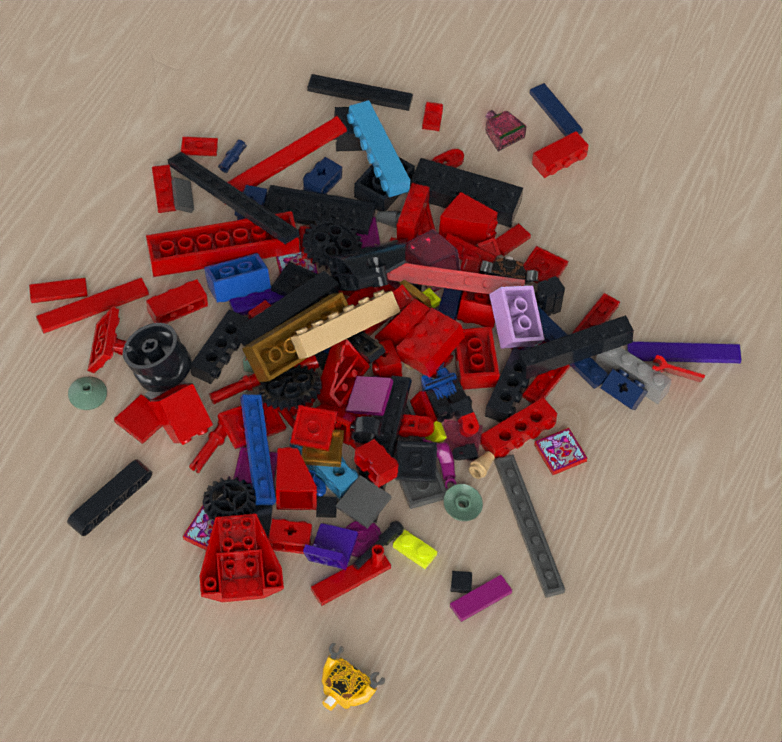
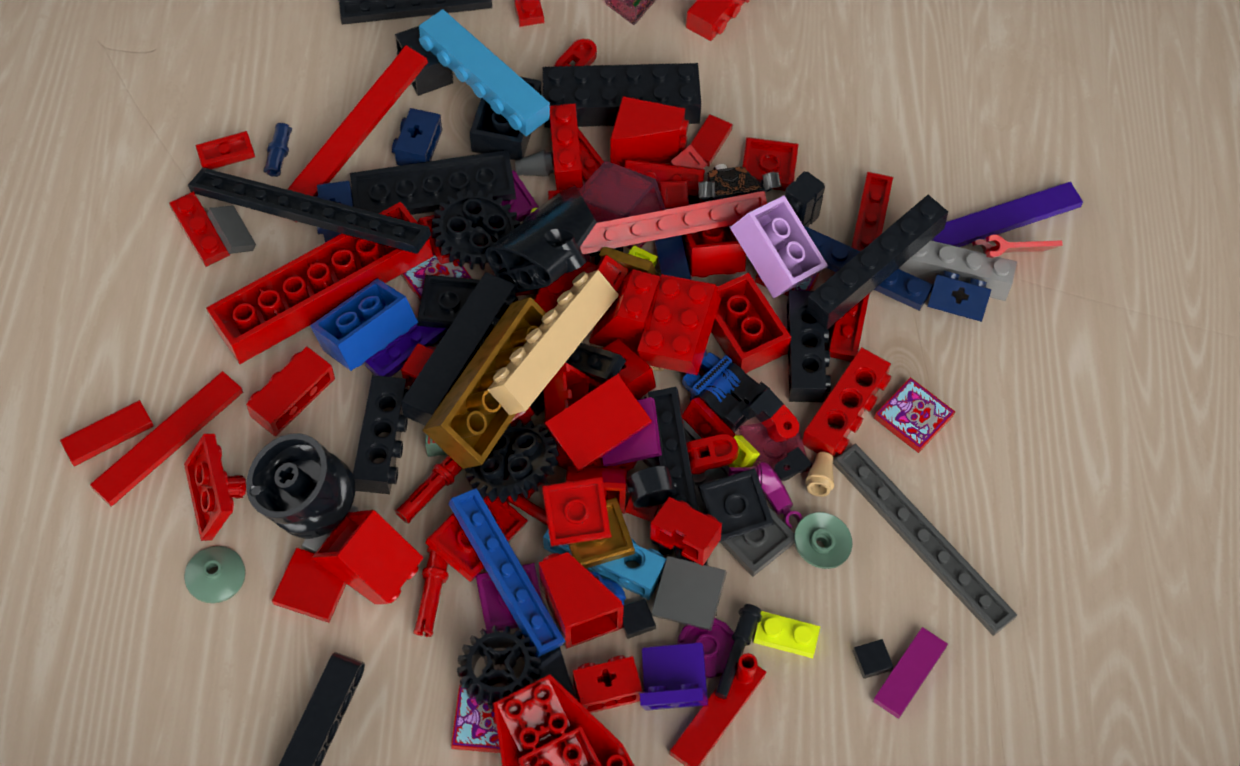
camera: 20 degrees left, 5 degrees up
(351, 381) = (598, 422): none -> red tile

